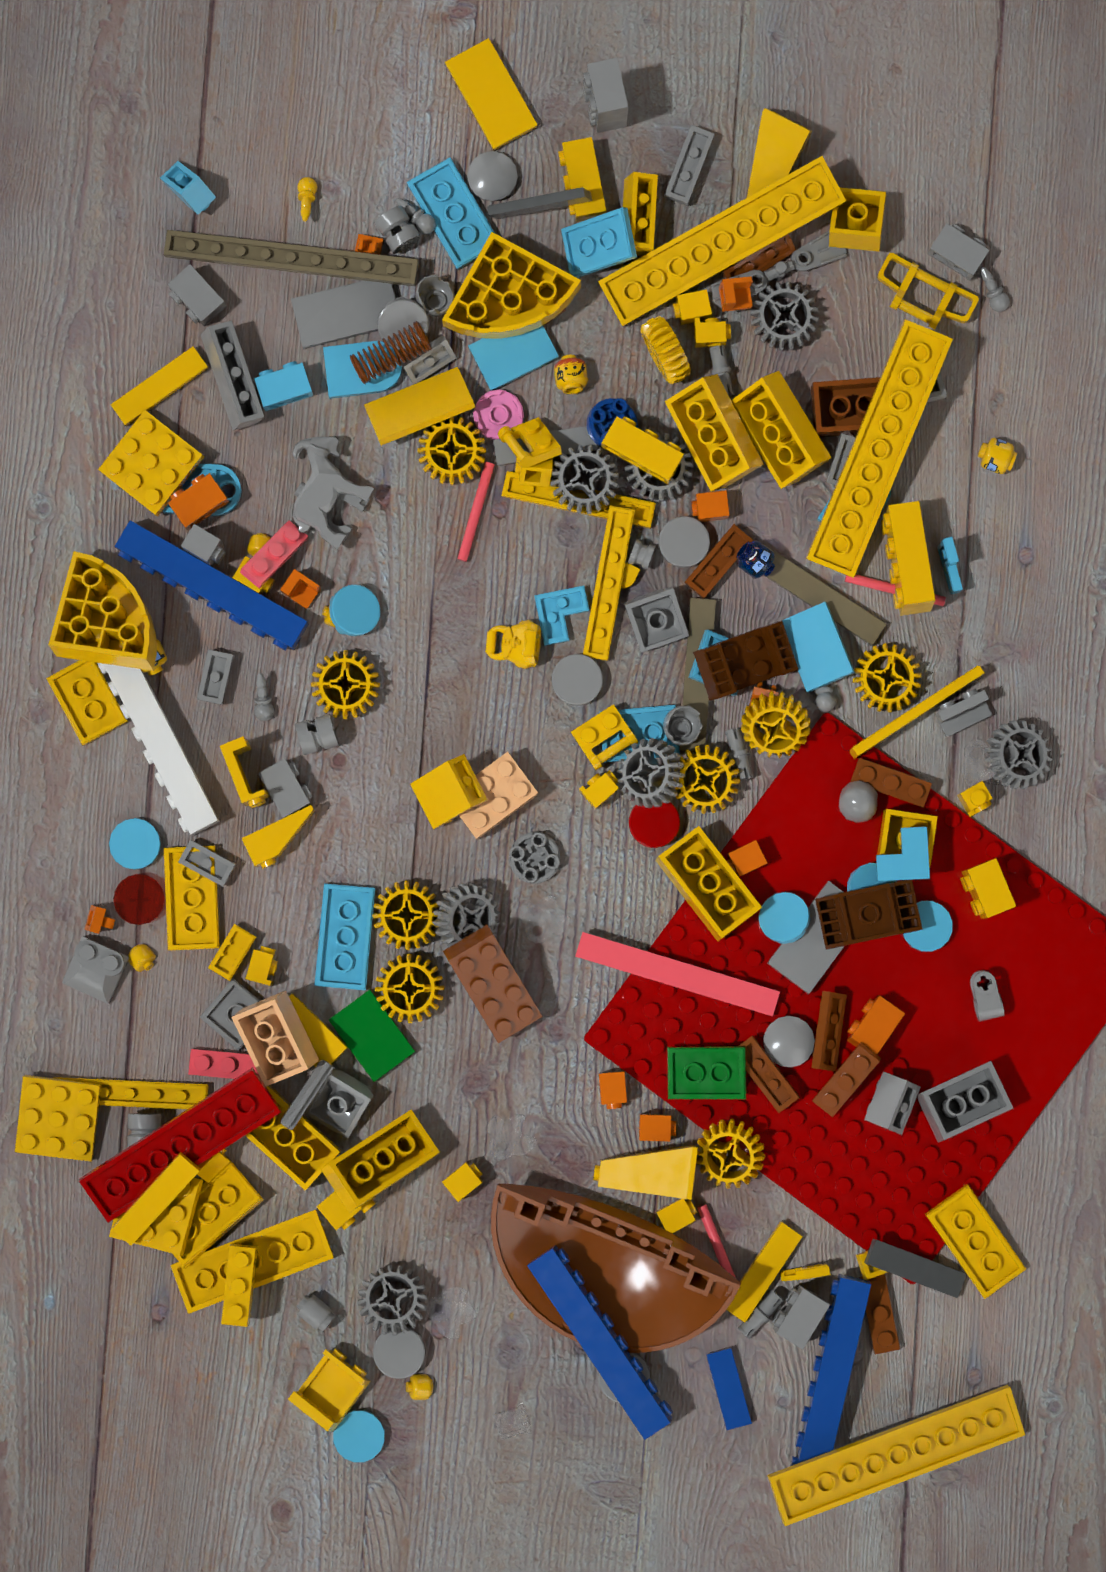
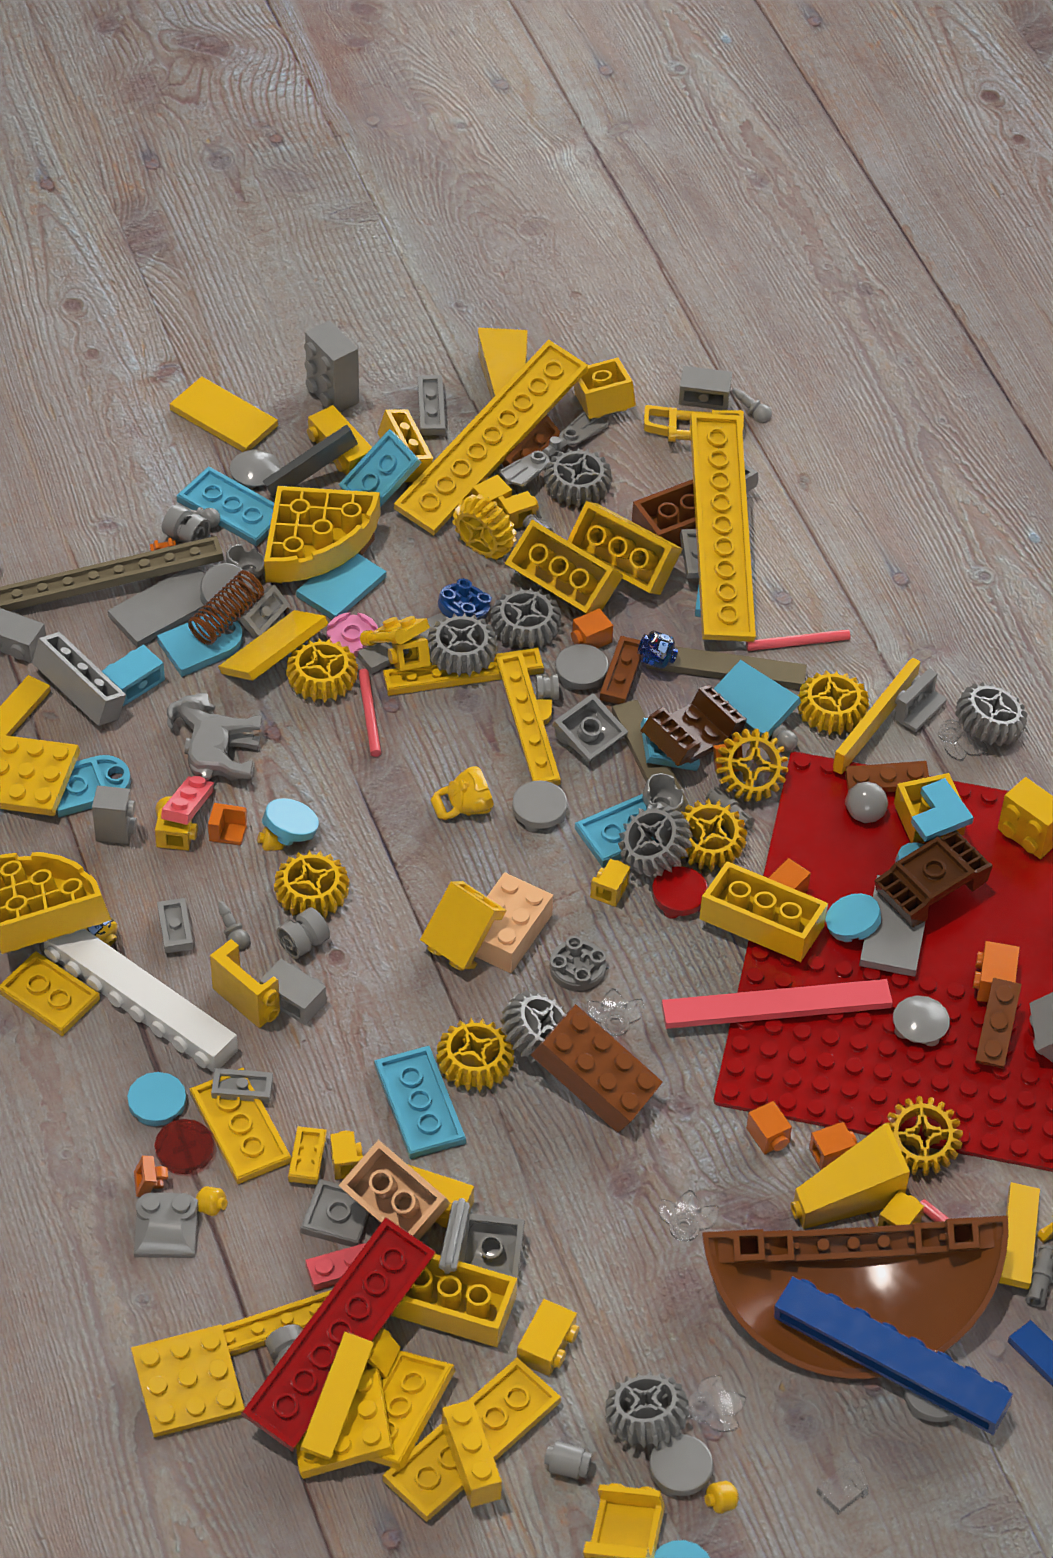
camera: 25 degrees left, 35 degrees down
(197, 501) = (80, 787): orange brick -> none
(211, 585) = (140, 850): blue brick -> none
(273, 839) = (300, 1040): yellow slope -> none
(307, 188) = (85, 533): yellow bar -> none
(371, 1035) = (497, 1177): green tile -> none
(380, 1161) = (564, 1270): yellow brick -> none
(409, 1005) = (506, 1125): yellow gear -> none
(463, 1180) = (660, 1271): yellow brick -> none
(553, 608) = (490, 759): medium azure tile -> none
(570, 374) = (405, 579): yellow head -> none
(600, 729) = (585, 831): yellow plate -> none
(642, 449) = (505, 597): yellow brick -> none
(707, 1072) = (856, 1072): green tile -> none
(735, 293) = (523, 463): orange panel -> none
(768, 1076) = (915, 1052): dark orange plate -> none
(829, 1031) = (955, 993): dark orange plate -> none
(909, 558) = (798, 599): yellow brick -> none
(935, 925) = (1002, 883): medium azure tile -> none
(949, 560) = (832, 597): medium azure tile -> none
(975, 798) = (973, 763): yellow brick -> none
(997, 455) = (829, 512): yellow head -> none

